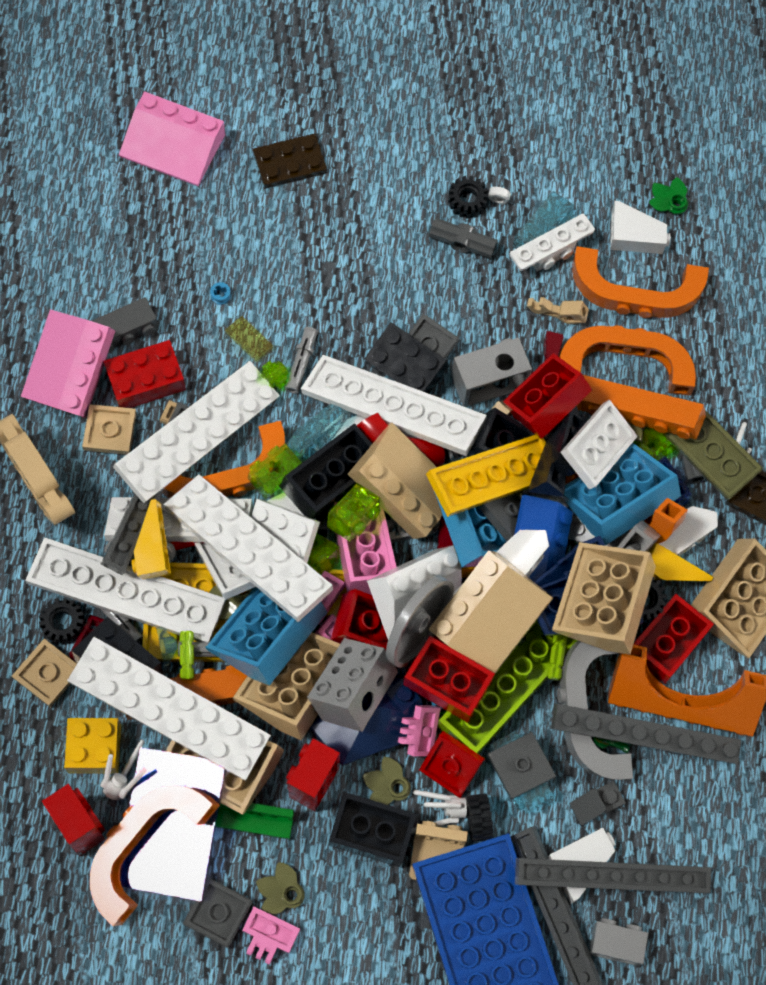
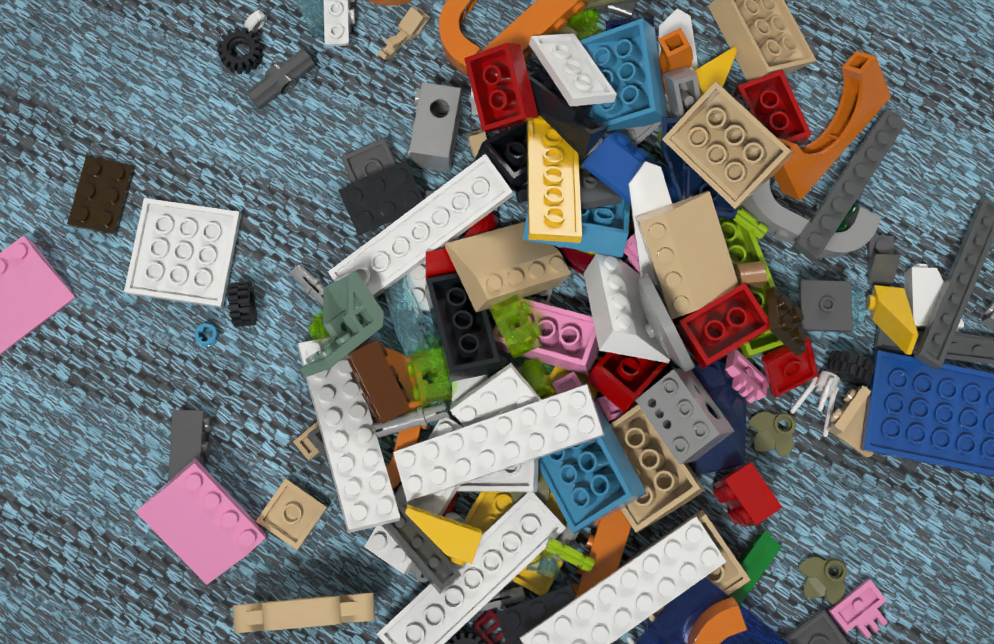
camera: 55 degrees left, 10 degrees up
(145, 375) = (255, 451): red brick -> none
(238, 480) = (410, 420): none -> light grey pin
(248, 338) = (270, 332): clear yellow tile -> none
(249, 429) = (377, 381): none -> reddish brown wedge
(258, 303) = (242, 304): none -> black tyre
(277, 242) = (183, 253): none -> white plate
(297, 378) = (350, 303): none -> sand green bracket
(372, 829) = (815, 468): black brick -> none
(483, 728) = (785, 321): none -> dark brown plate
(508, 682) = (751, 273): none -> medium nougat brick
(548, 829) = (893, 315): none -> yellow slope
(552, 344) = (441, 62): dark red slope -> none

